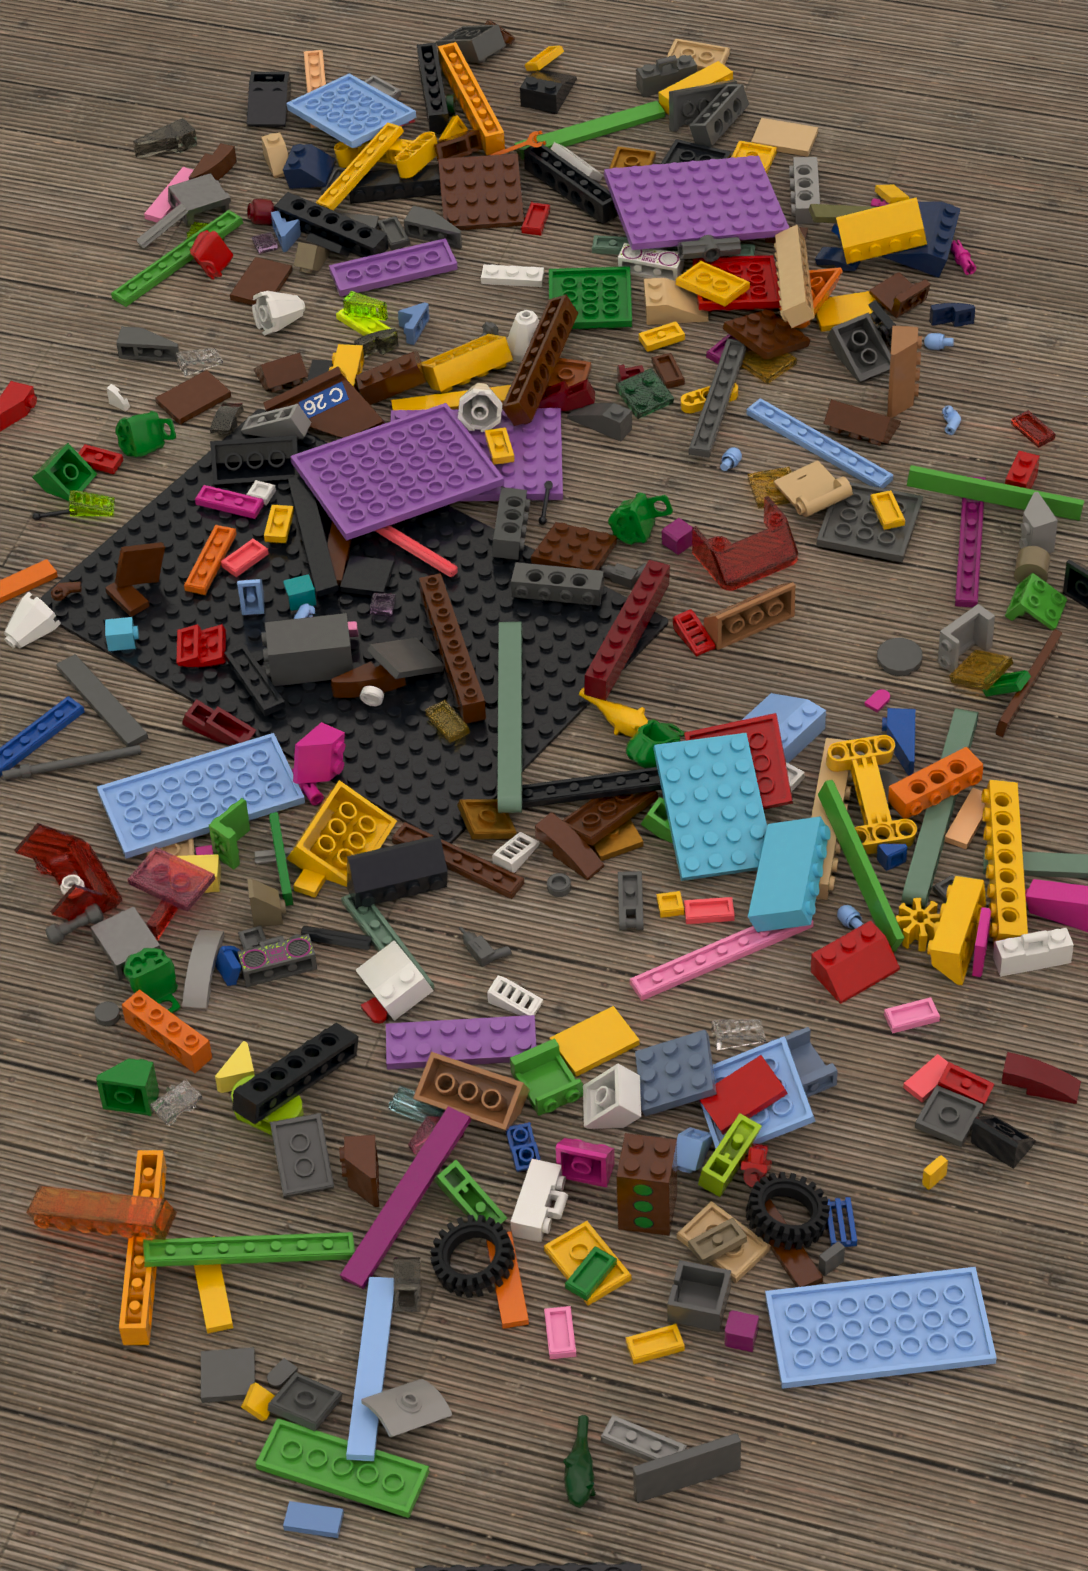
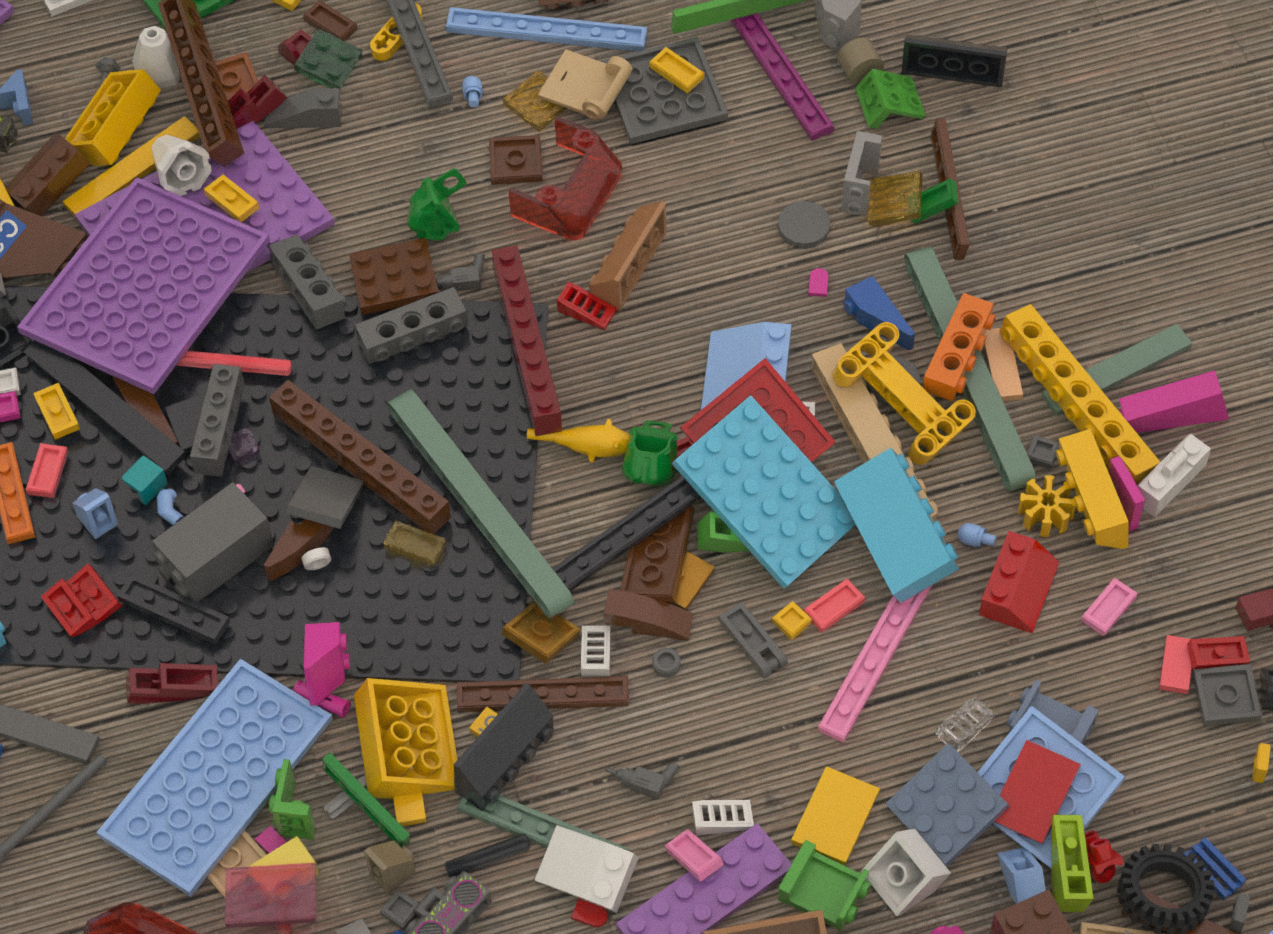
camera: 35 degrees left, 10 degrees up
(374, 576) = (217, 420): none -> dark grey brick
(472, 1009) = (694, 855): none -> bright pink tile
(548, 485) = (315, 218): black hinge -> none
(677, 536) = (488, 205): magenta piece -> none
(725, 517) = (515, 159): none -> reddish brown tile
(860, 864) = (950, 473): bright green tile -> none
(891, 855) = (963, 446): blue slope -> none

